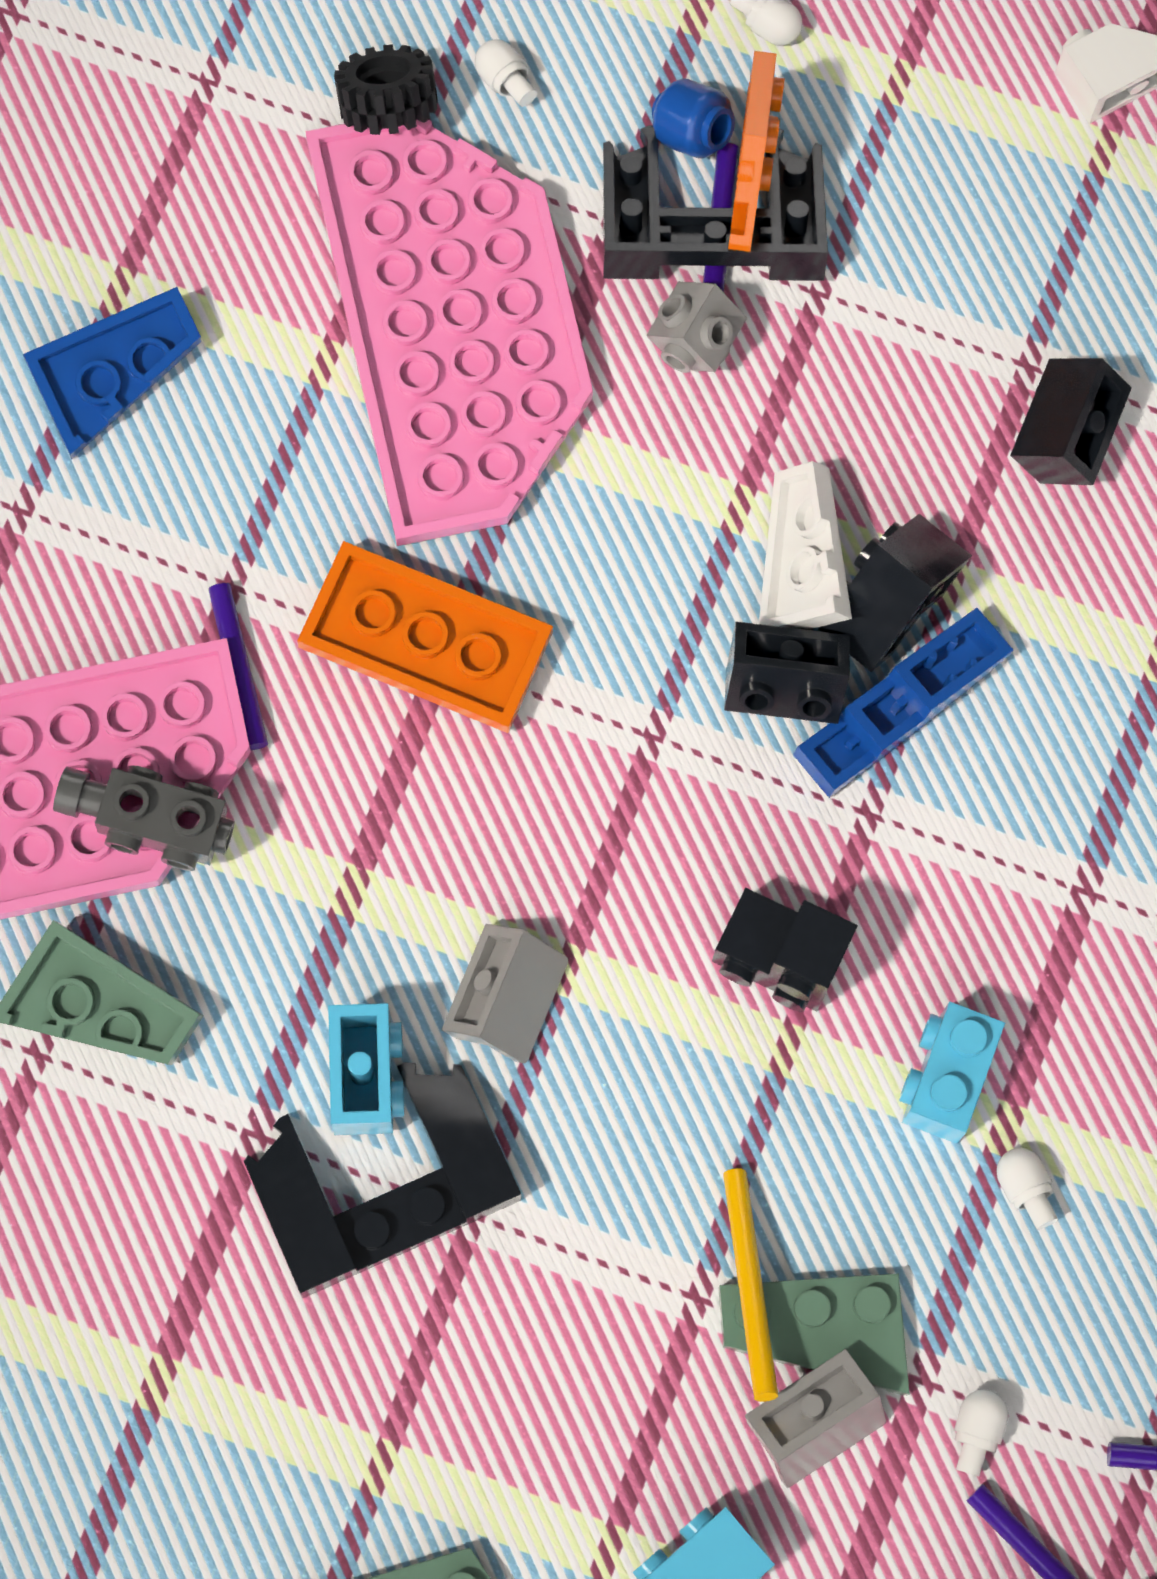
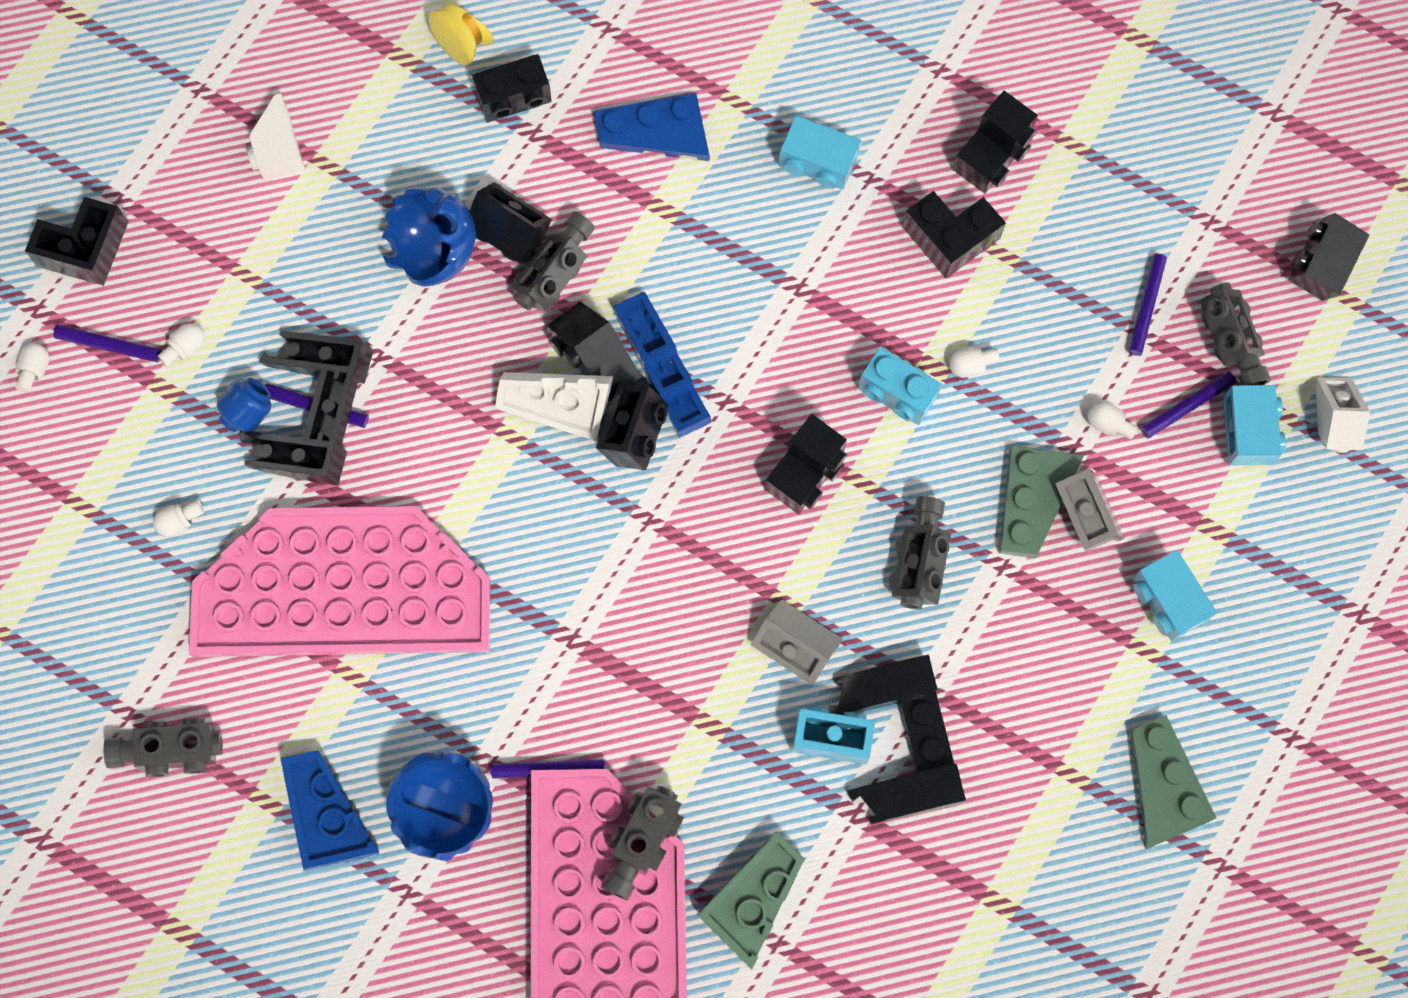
camera: 75 degrees left, 0 degrees up
(144, 513) = (439, 805): none -> blue piece
(167, 138) = (171, 748): none -> dark grey brick
(386, 89) = (160, 590): black tyre -> none
(425, 636) = (556, 645): orange plate -> none
(673, 1165) = (921, 557): none -> dark grey brick
(696, 327) = (390, 433): light grey brick -> none
(750, 1285) = (1011, 530): yellow bar -> none
(758, 138) = (279, 365): orange wing -> none
(1012, 511) = (551, 275): none -> dark grey brick
(1019, 312) = (429, 235): none -> blue piece

